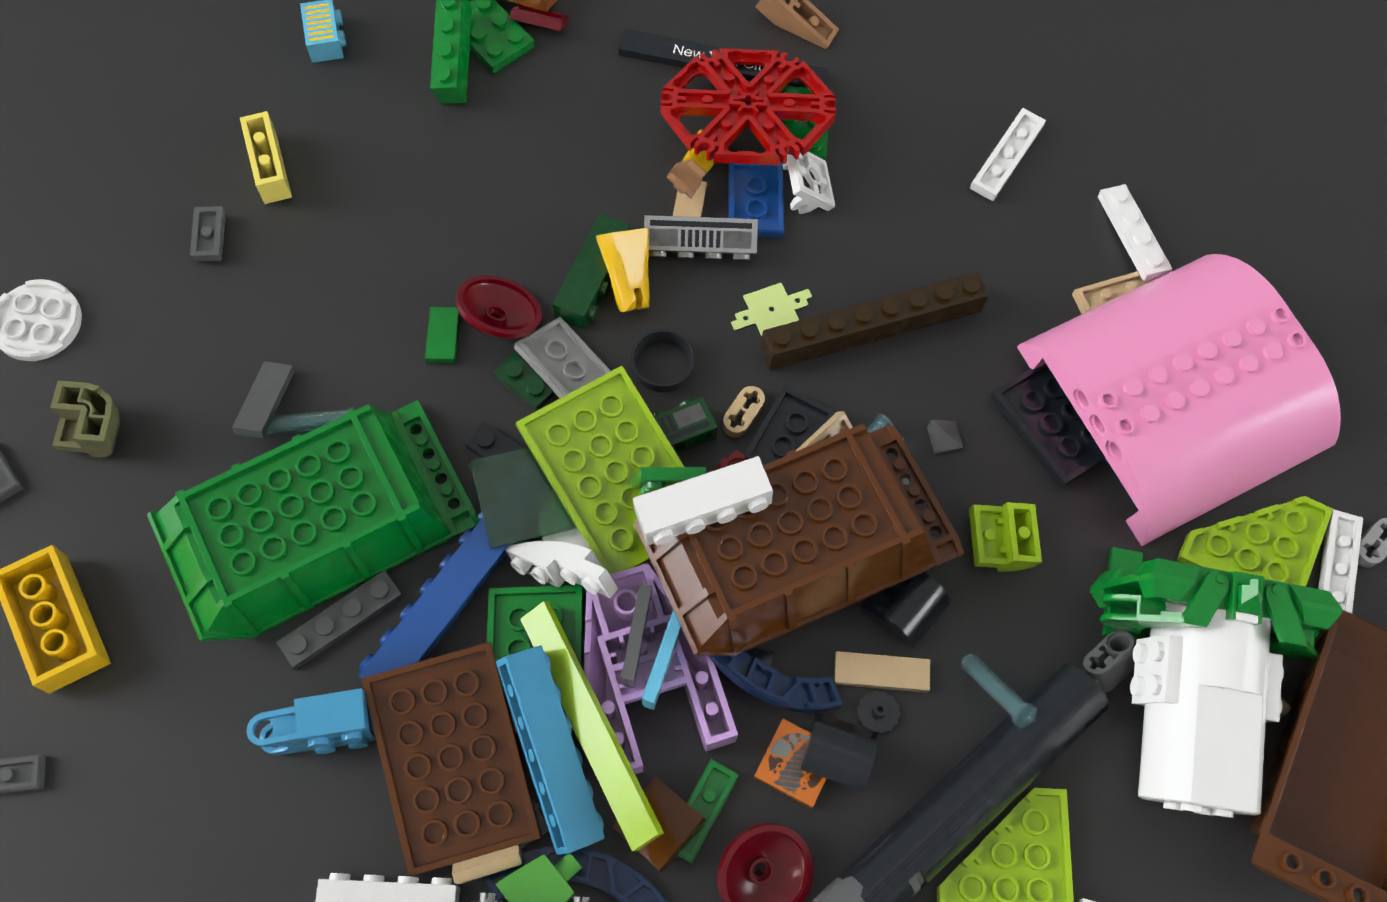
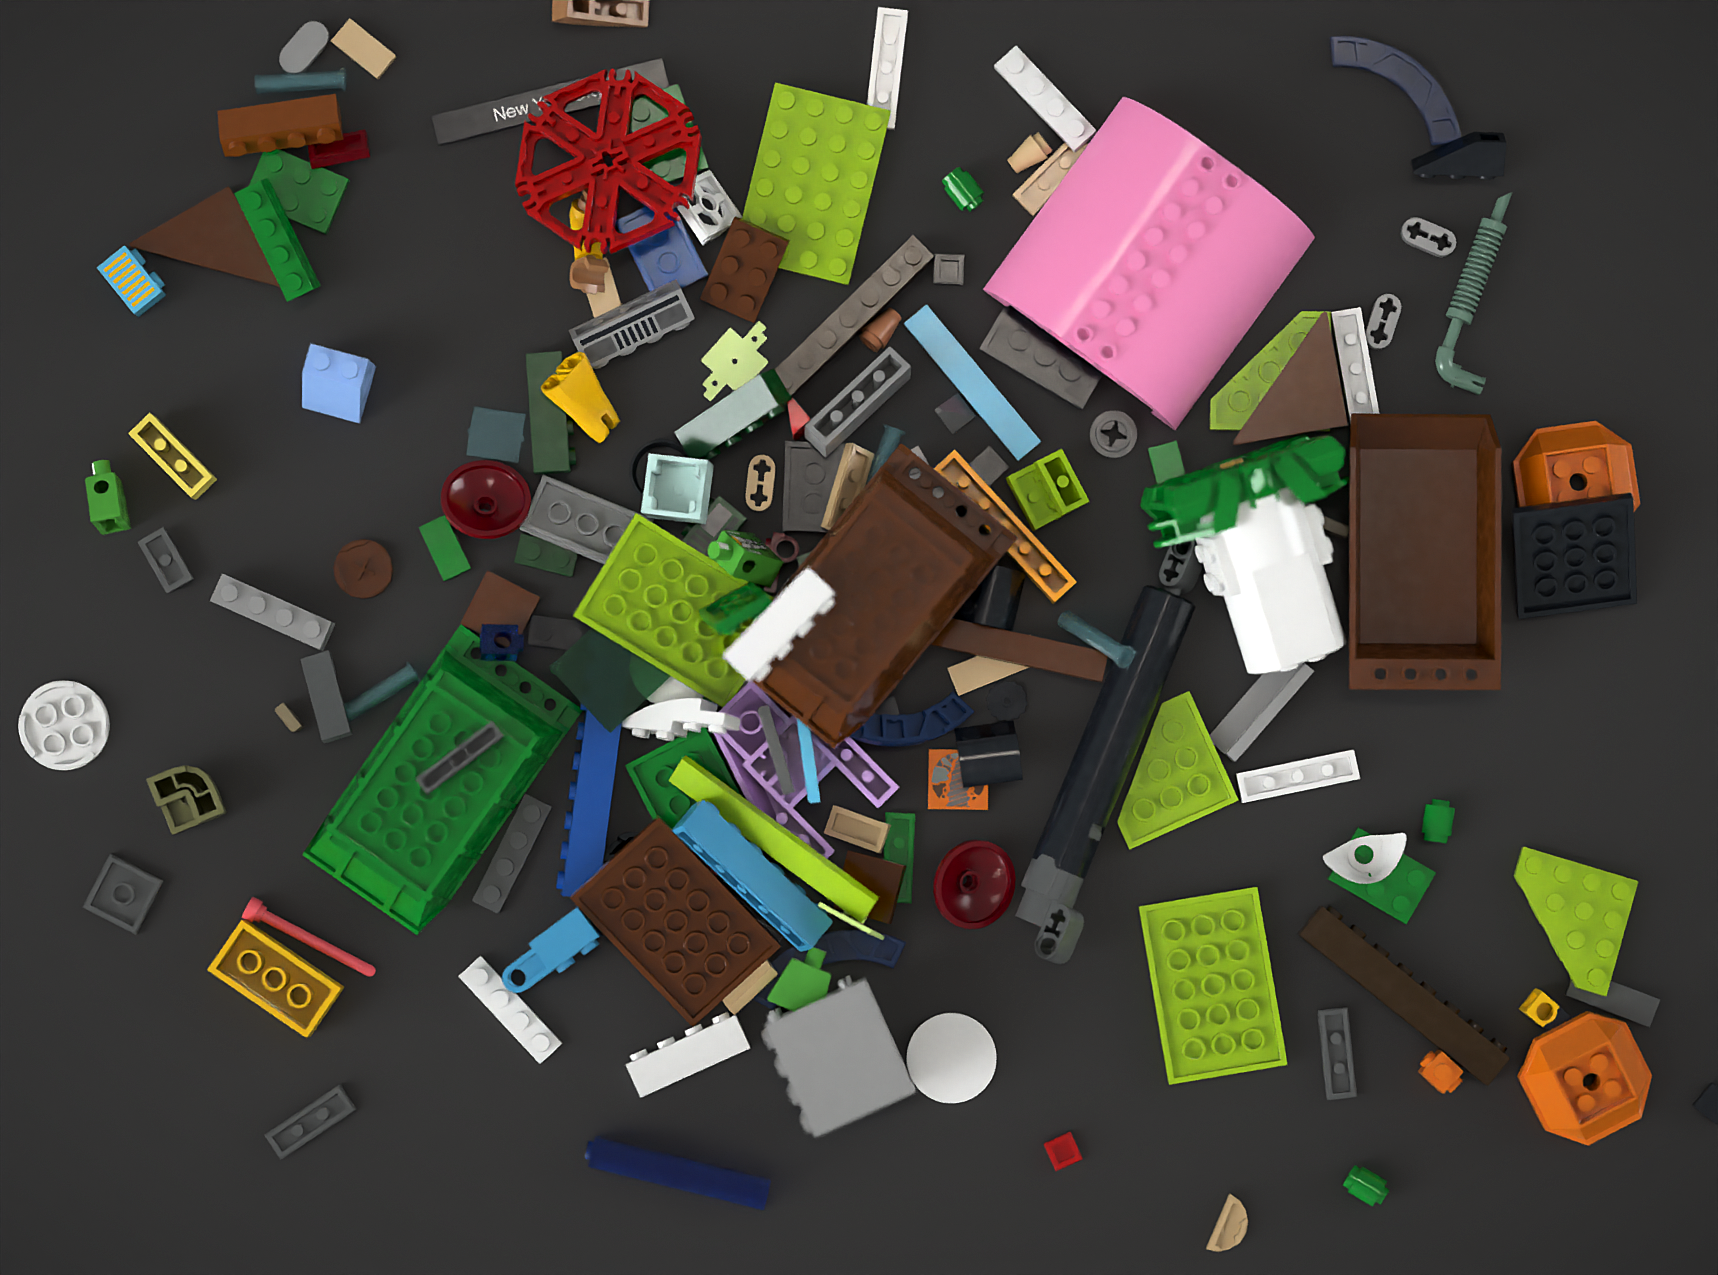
camera: 20 degrees left, 20 degrees up
(80, 553) = (258, 912): none -> coral piece
(190, 165) = (106, 499): none -> bright green torso
(221, 402) = (289, 718): none -> dark tan tile
(247, 770) = (510, 1010): none -> white plate
(265, 311) = (272, 612): none -> light grey brick
(334, 485) = (460, 757): none -> dark grey piece
(364, 319) = (363, 569): none -> reddish brown tile
(400, 31) = (212, 237): none -> reddish brown tile
(432, 161) = (336, 383): none -> light blue slope
(439, 412) = (490, 651): none -> clear blue brick
(458, 406) = (500, 603): none -> reddish brown tile
(539, 271) = (496, 434): none -> clear light blue piece
(622, 844) = (845, 916): none -> yellowish green piece
(669, 369) = (677, 488): none -> light aqua container
(675, 761) = (857, 829): none -> tan tile
(693, 446) = (736, 549): none -> bright green torso
(751, 334) = (734, 415): none -> brick
(806, 368) = (798, 419): none -> slope
(818, 239) = (744, 269): none -> reddish brown plate
(865, 378) = (857, 401): none -> light grey brick
(905, 207) = (816, 178): none -> lime plate
(909, 339) = (880, 330): none -> nougat cone
(916, 667) = (1022, 650): none -> reddish brown tile
(955, 494) = (989, 465): none -> black tile
(961, 576) = (1027, 549): none -> light orange brick
(973, 421) = (972, 382): none -> medium azure tile
(992, 322) = (948, 269): none -> tile
(1033, 265) = (963, 189): none -> green brick
(1081, 507) = (1125, 427): none -> dark grey gear
(1104, 265) = (1031, 152): none -> tan cone
(1130, 842) = (1257, 710): none -> light grey panel
(1291, 554) = (1304, 394): none -> reddish brown tile

